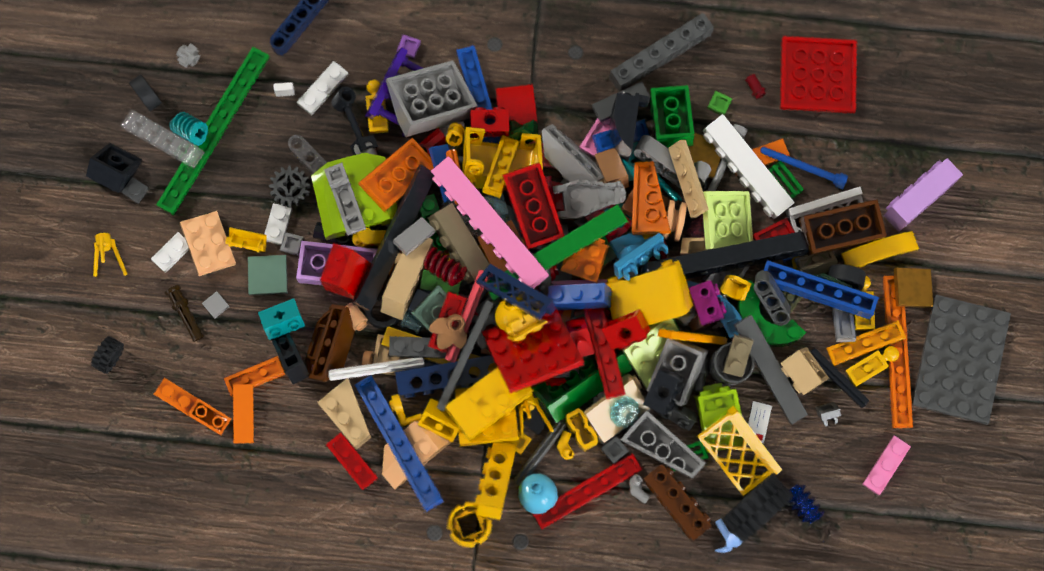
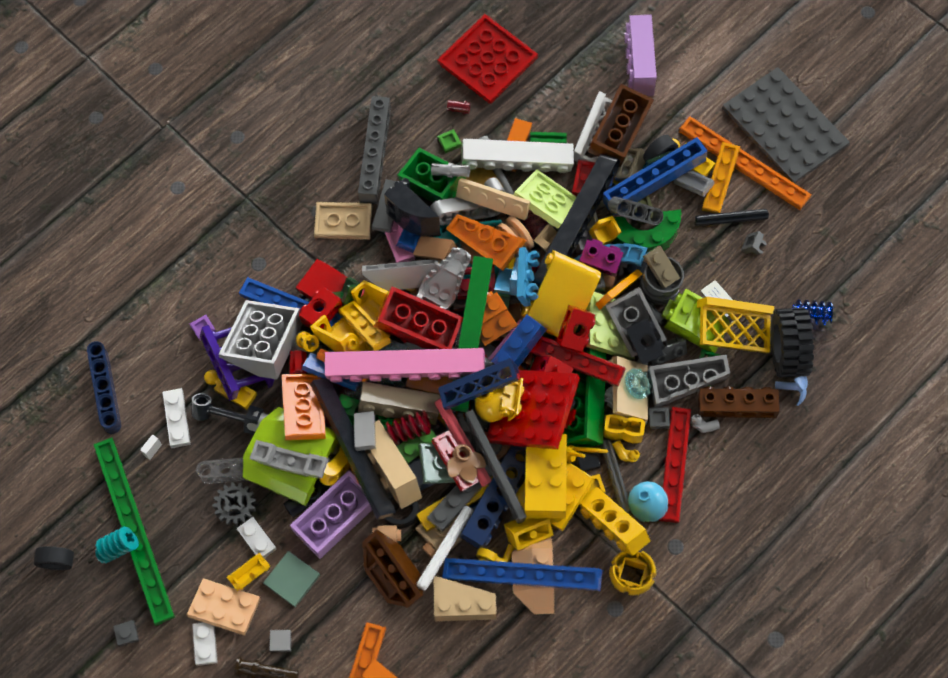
camera: 45 degrees left, 10 degrees down
(113, 167) = (91, 635): black slope -> none
(162, 139) = (104, 575): clear beam -> none
(188, 55) = (53, 501): light grey gear -> none
(281, 319) = (339, 594): teal brick -> none
(290, 358) = (372, 611): black slope -> none
(291, 244) = (282, 540): light grey tile -> none
(344, 271) = (348, 506): red slope -> none
(351, 461) = (503, 629): red plate -> none
(411, 322) = (430, 493): clear light blue bush -> none
(582, 77) = (343, 220): none -> tan tile
(684, 126) = (450, 170): none -> light grey pin
(771, 370) = (691, 255): dark grey tile -> none
(804, 371) = (709, 232): tan brick -> none
(837, 179) = (579, 104): blue piece -> none
(871, 365) = (741, 187): yellow plate -> none
(880, 249) = (657, 116): yellow slope -> none
(886, 465) = (826, 234): bright pink plate -> none
(913, 287) = (705, 115): pearl gold tile -> none

